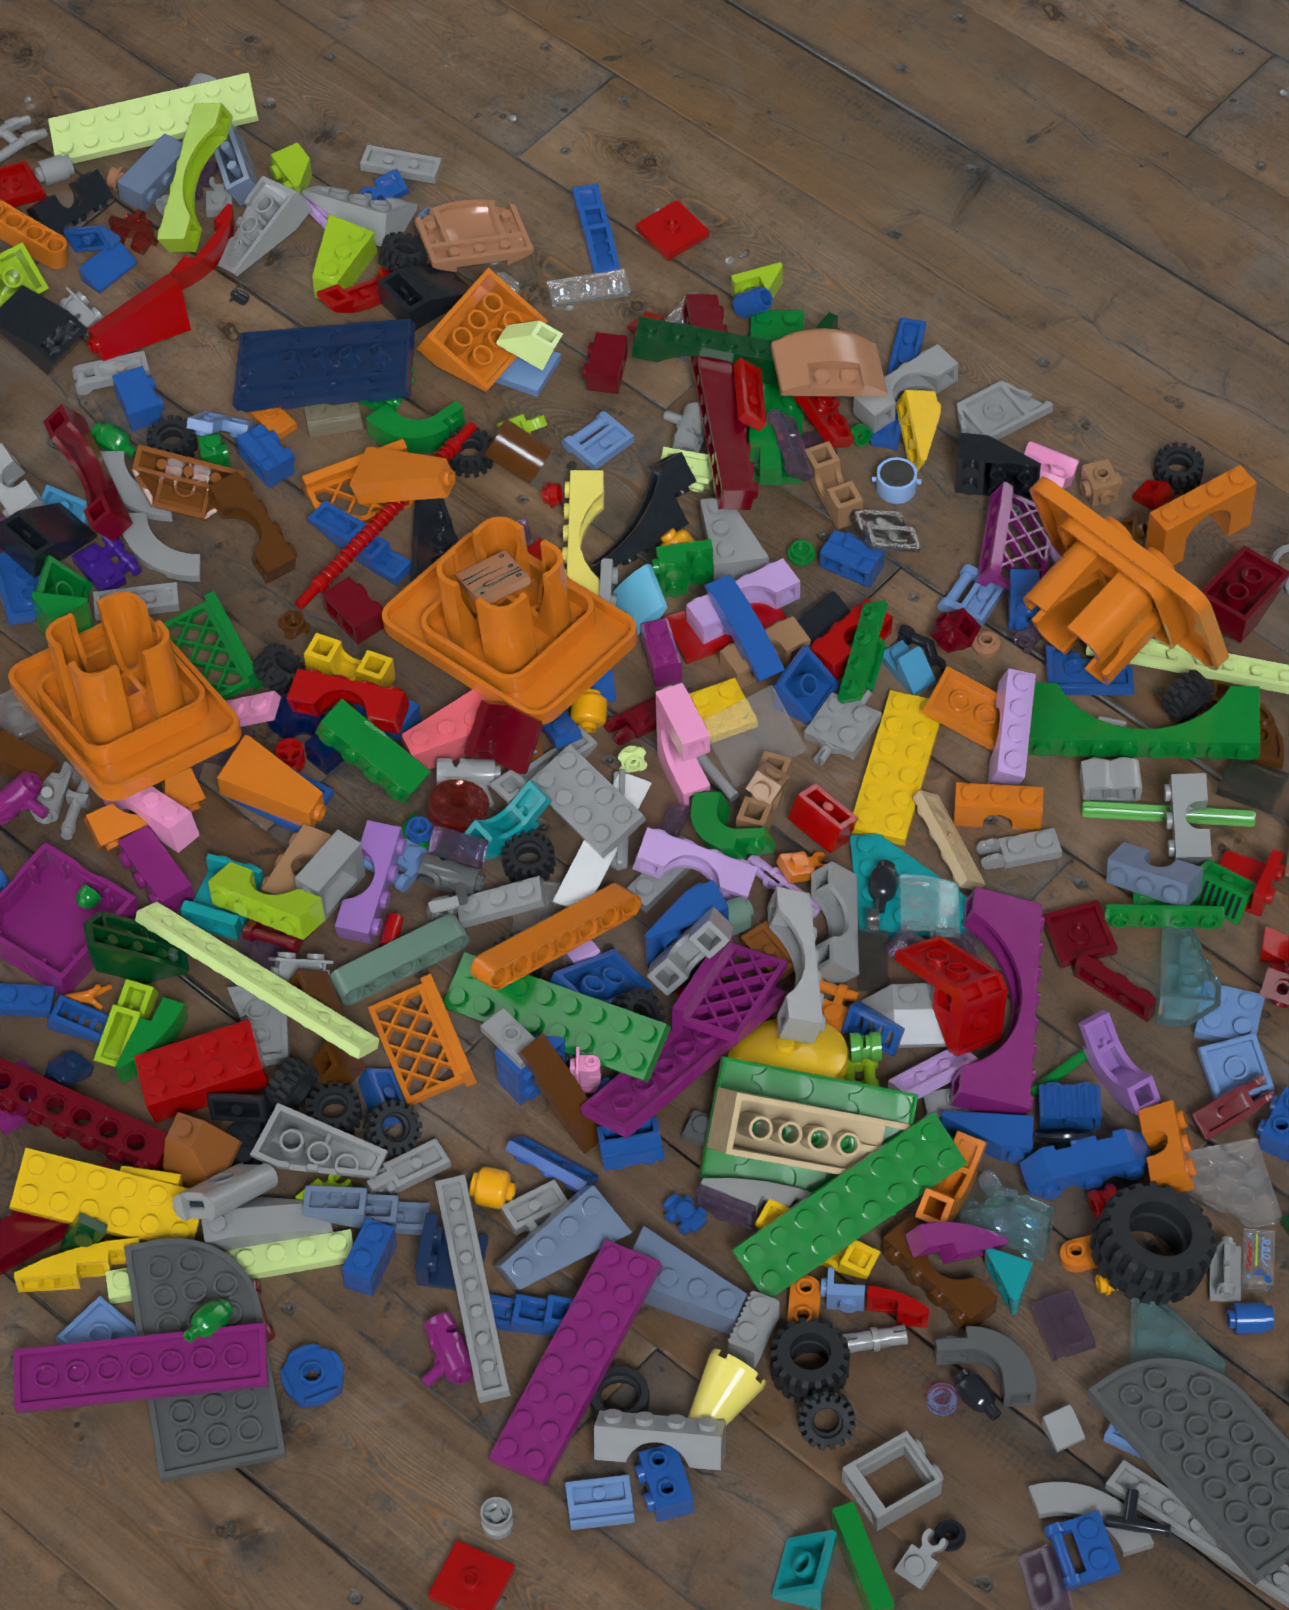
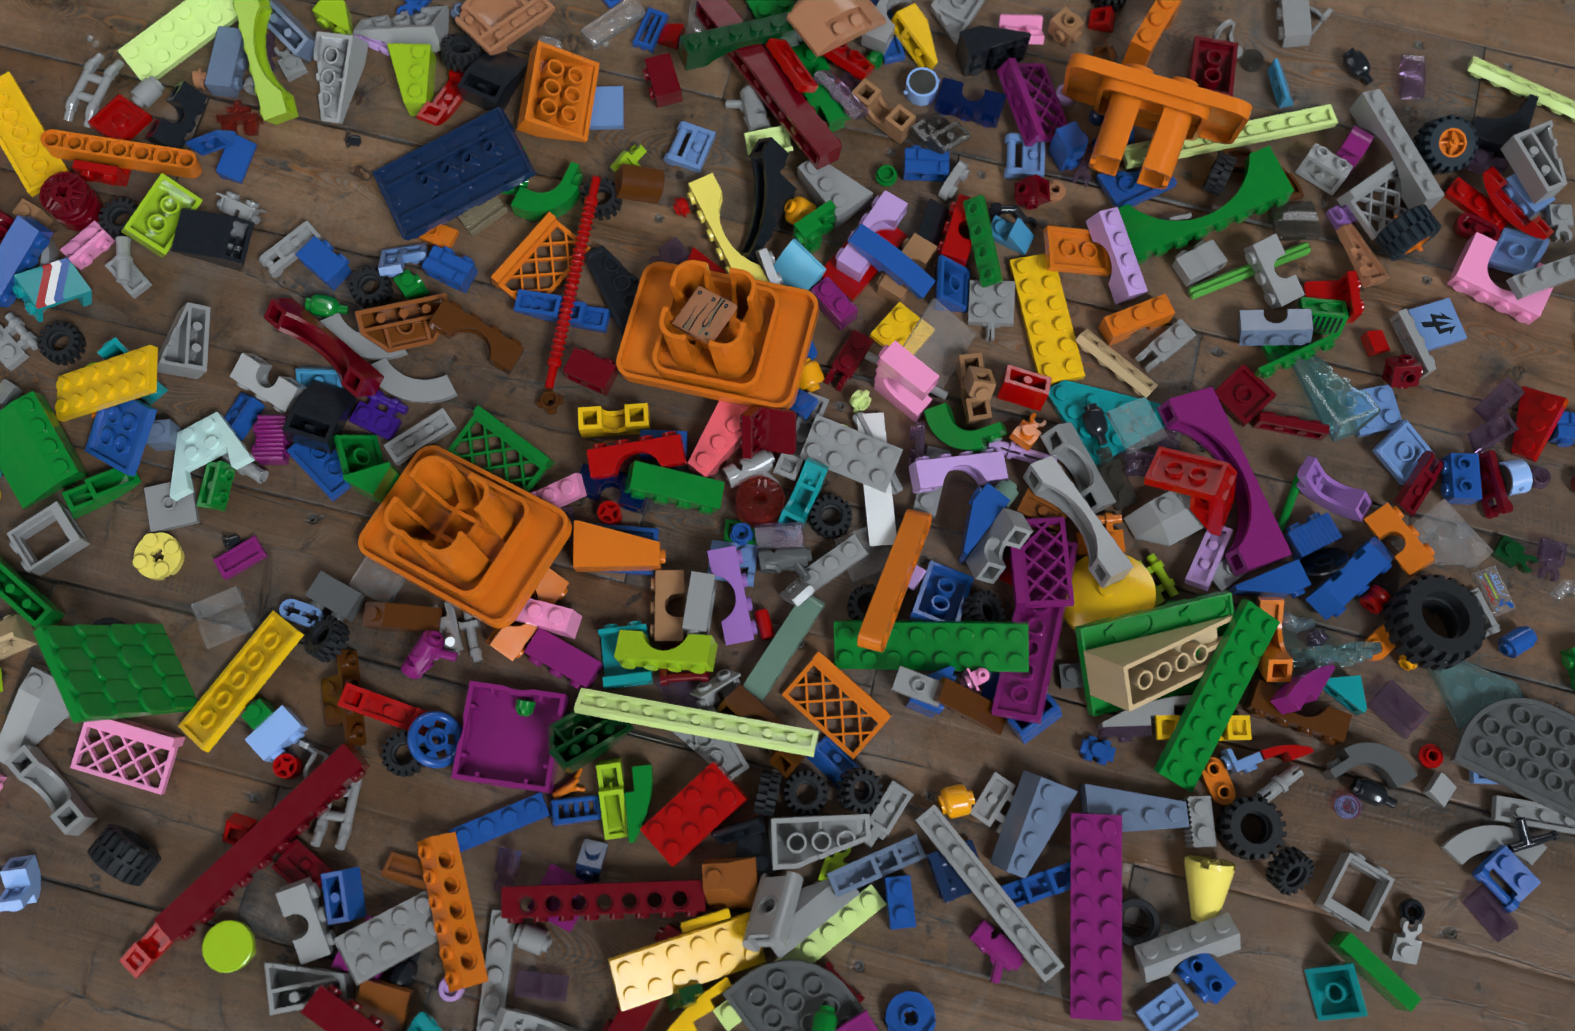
camera: 30 degrees left, 20 degrees up
(141, 321) = (292, 197): red slope -> none
(192, 270) = (305, 134): red slope -> none
(277, 667) = (568, 457): black tyre -> none
(400, 476) = (571, 248): orange slope -> none
(530, 342) = (601, 88): yellowish green slope -> none
(550, 1163) = (985, 758): blue plate -> none
(628, 314) = (644, 44): none -> blue tile
(860, 1009) = (1142, 532): blue slope -> none
(872, 1048) = (1158, 560): bright green wheel -> none
(874, 585) = (950, 187): none -> light grey plate
(955, 531) = (984, 111): none -> clear blue arch
(1072, 1398) = (1423, 756): none -> red plate

